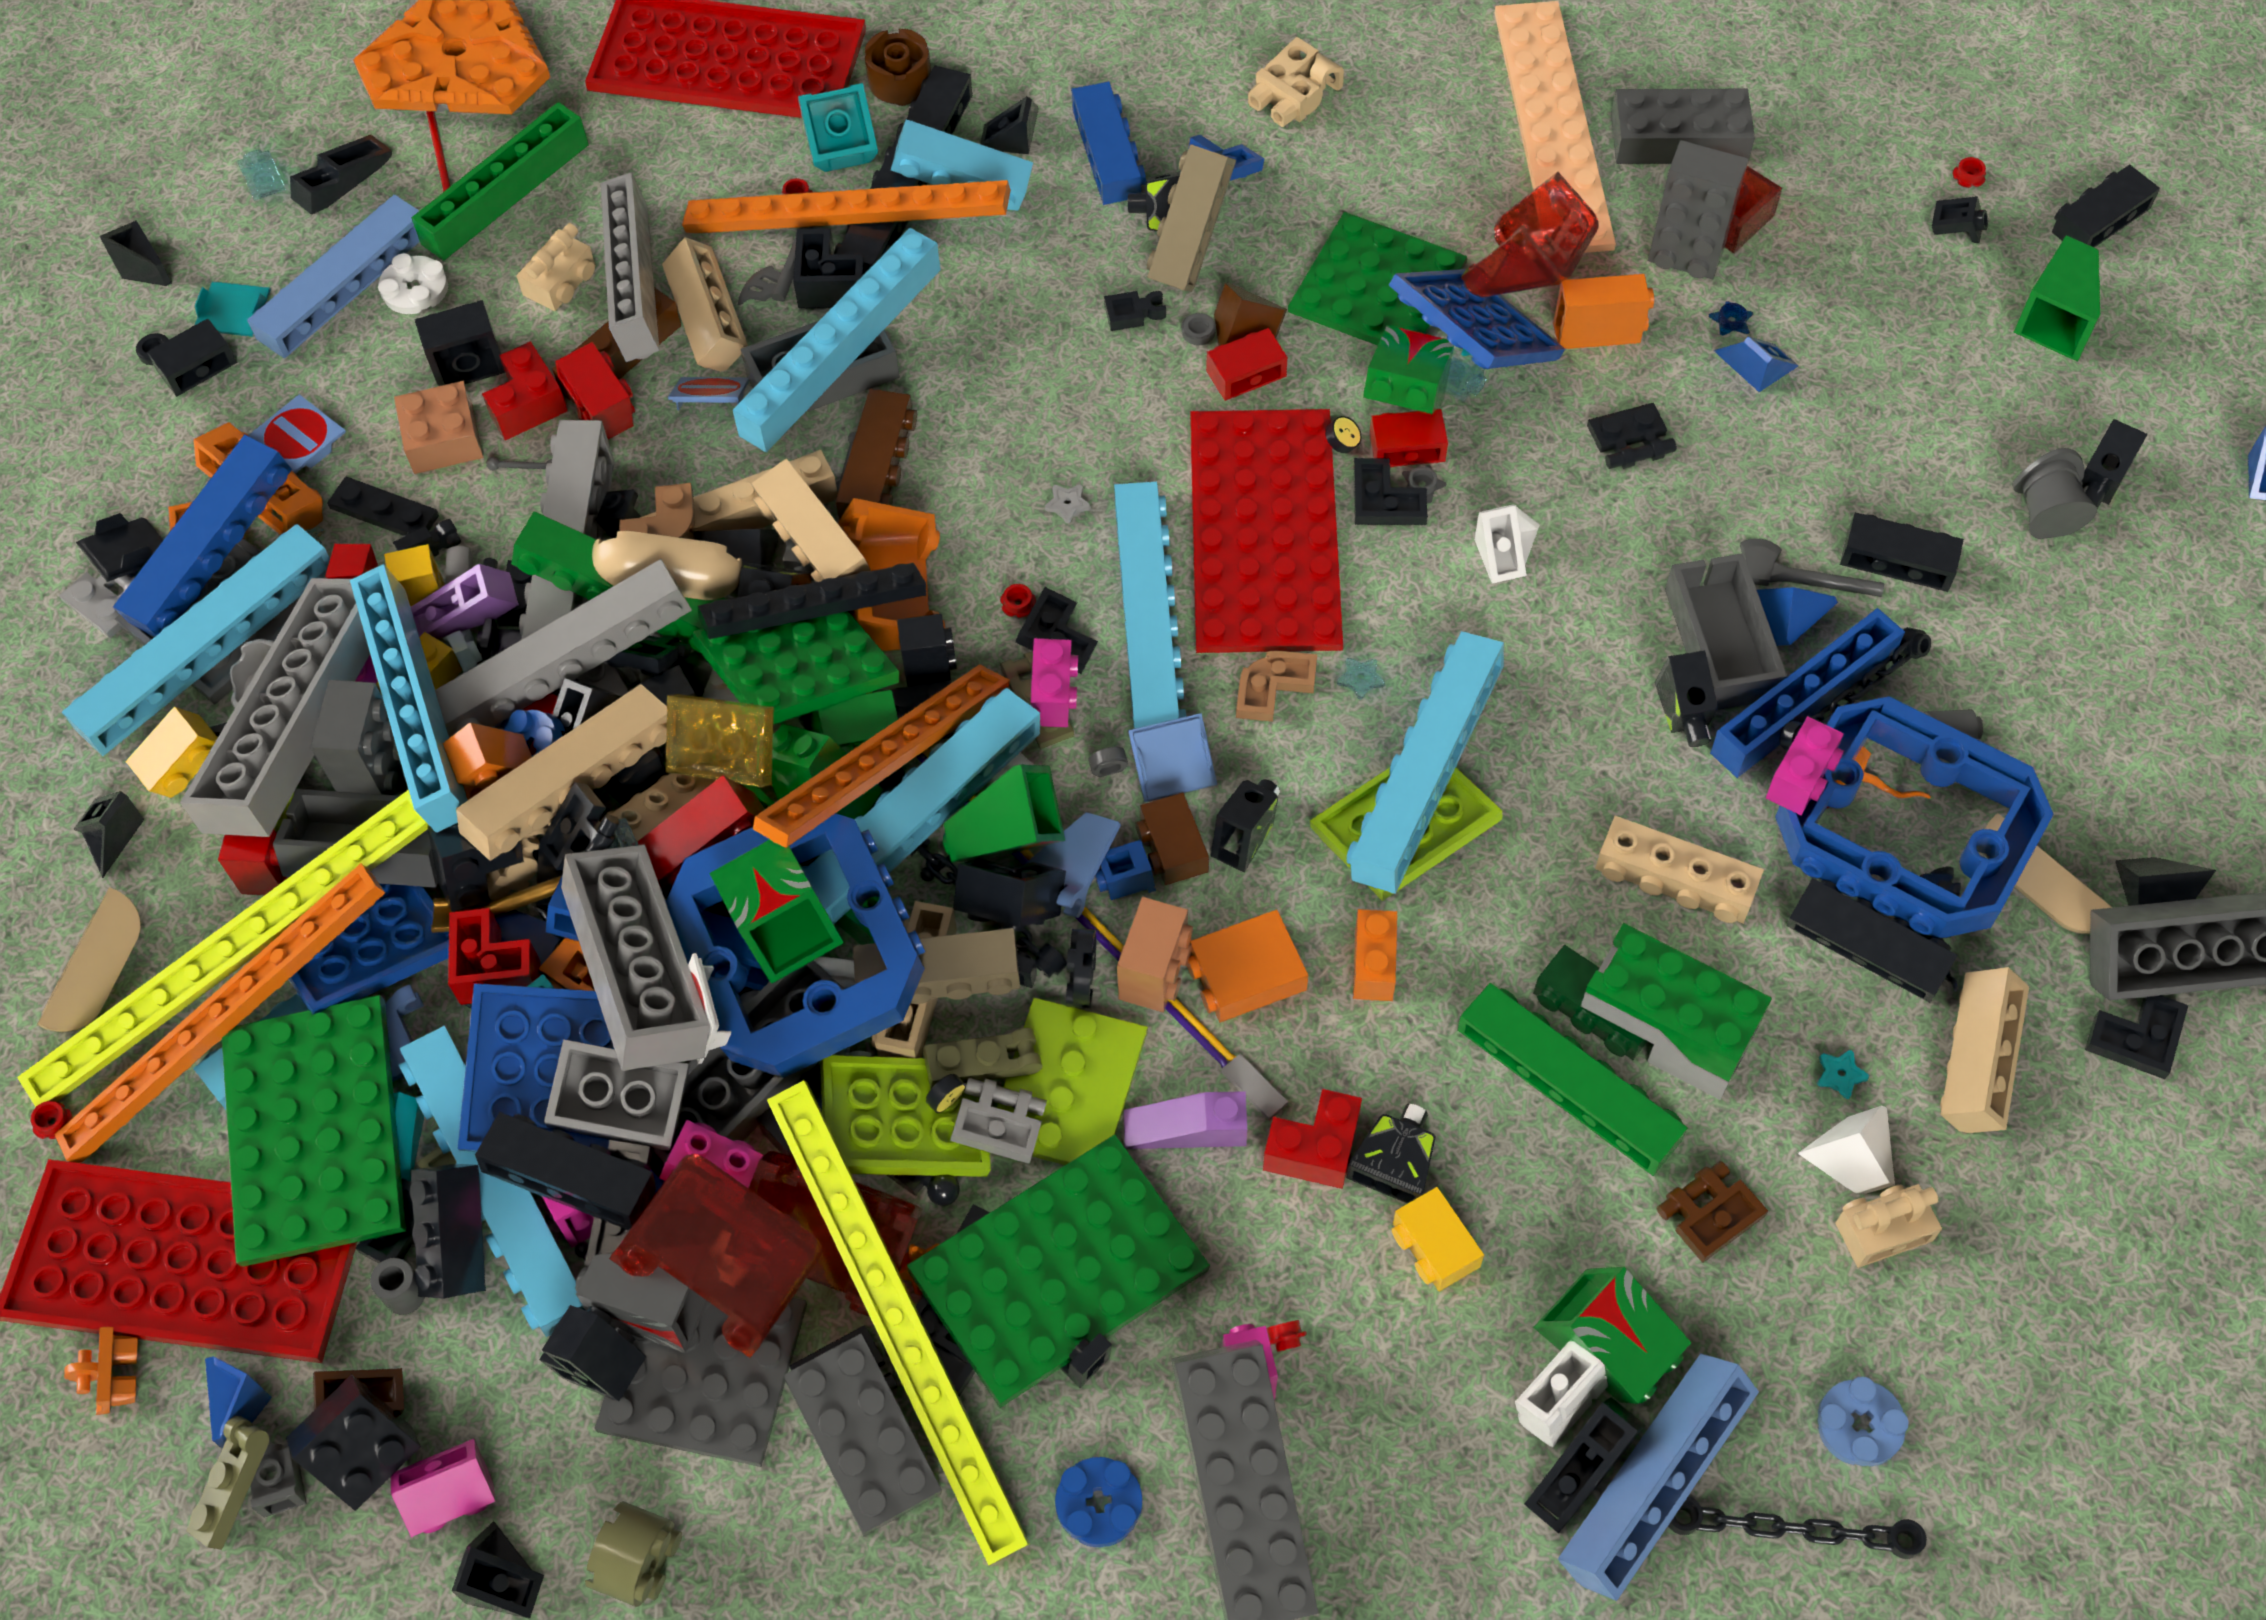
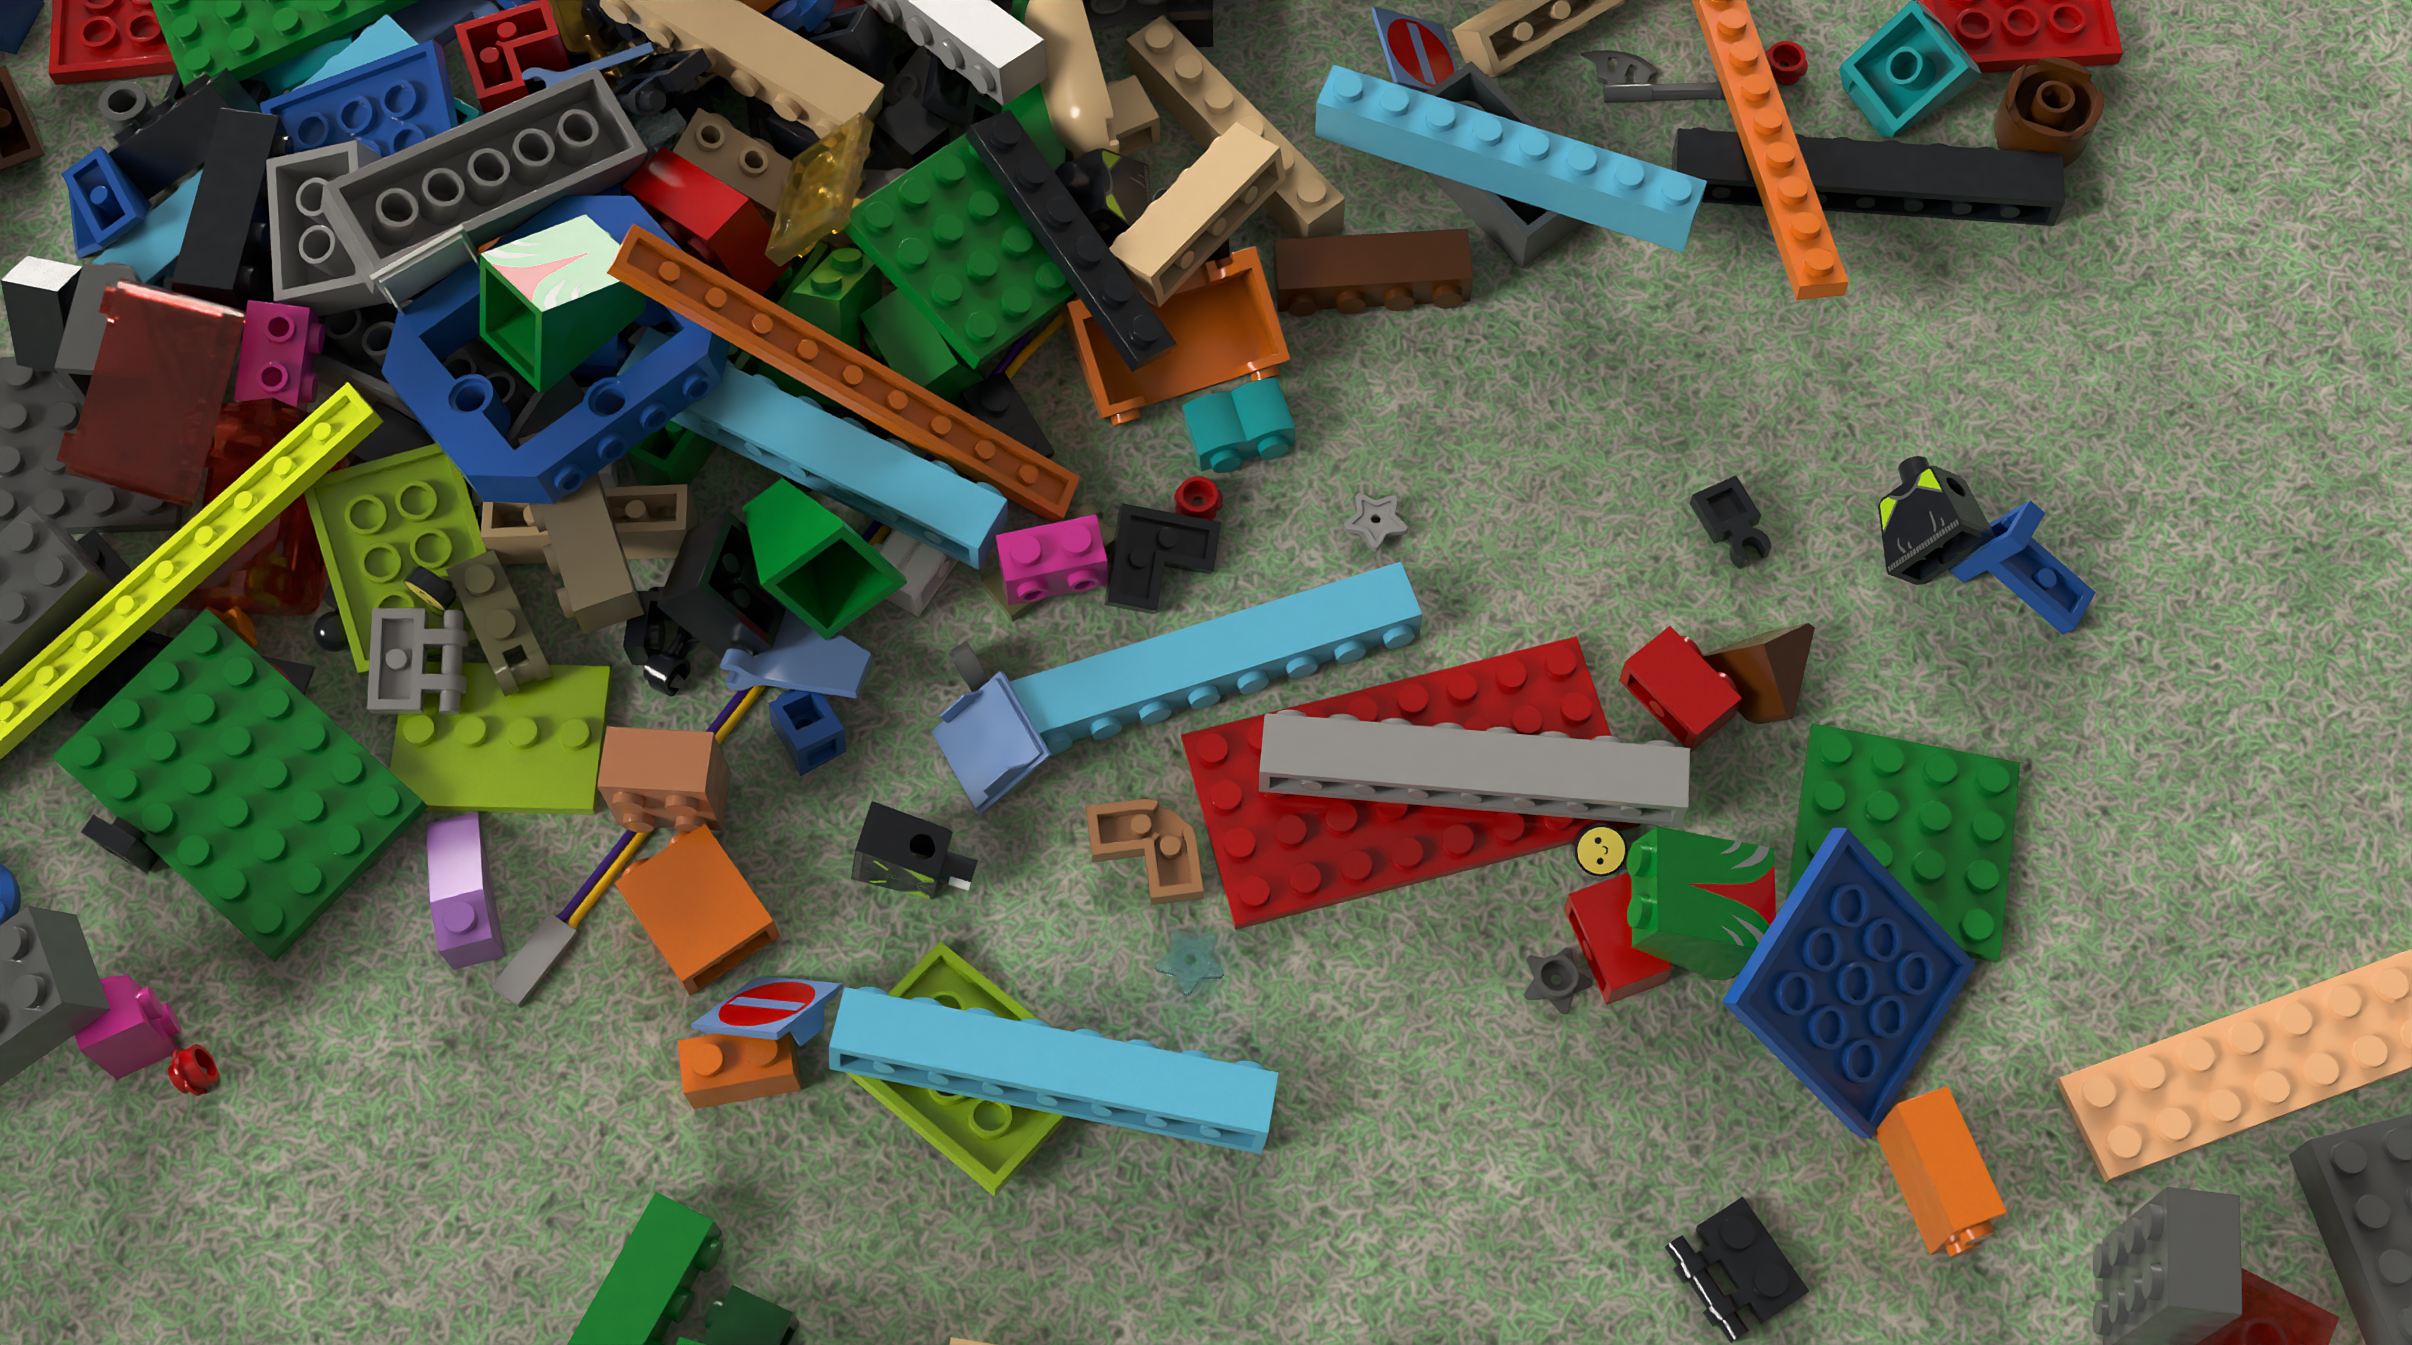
camera: 75 degrees right, 5 degrees up
(490, 1314) = (101, 202): none -> blue slope
(532, 892) = (604, 65): none -> medium blue flag
(673, 513) = (1173, 63): medium nougat plate -> none
(750, 545) = (1170, 146): black slope -> none
(820, 274) = (1645, 114): black brick -> none
(926, 649) = (1068, 402): black brick -> none
(948, 159) = (1885, 233): medium azure brick -> none
(970, 562) = (1239, 425): none -> teal brick
(1012, 129) = (2002, 290): black slope -> none
(1081, 966) = (642, 701): black plate -> none
(1107, 142) = (2022, 411): blue brick -> none
(1173, 839) = (874, 767): reddish brown brick -> none
(1190, 218) = (1888, 540): dark tan brick -> none
(1198, 329) = (1732, 615): dark grey tile -> none
(1277, 480) = (1475, 768): none -> light grey brick
(1287, 86) = (2236, 622): tan hips -> none
(1316, 1151) = (443, 1056): red brick -> none
(1342, 922) = (771, 1009): none -> medium blue piece
(1379, 502) = (1498, 918): black plate -> none
(1395, 1155) = (450, 1155): black torso -> none
(1436, 1239) = (339, 1230): yellow brick -> none
(1505, 541) = (1471, 1116): white slope -> none
(1537, 242) = (2066, 1064): clear red windscreen -> none

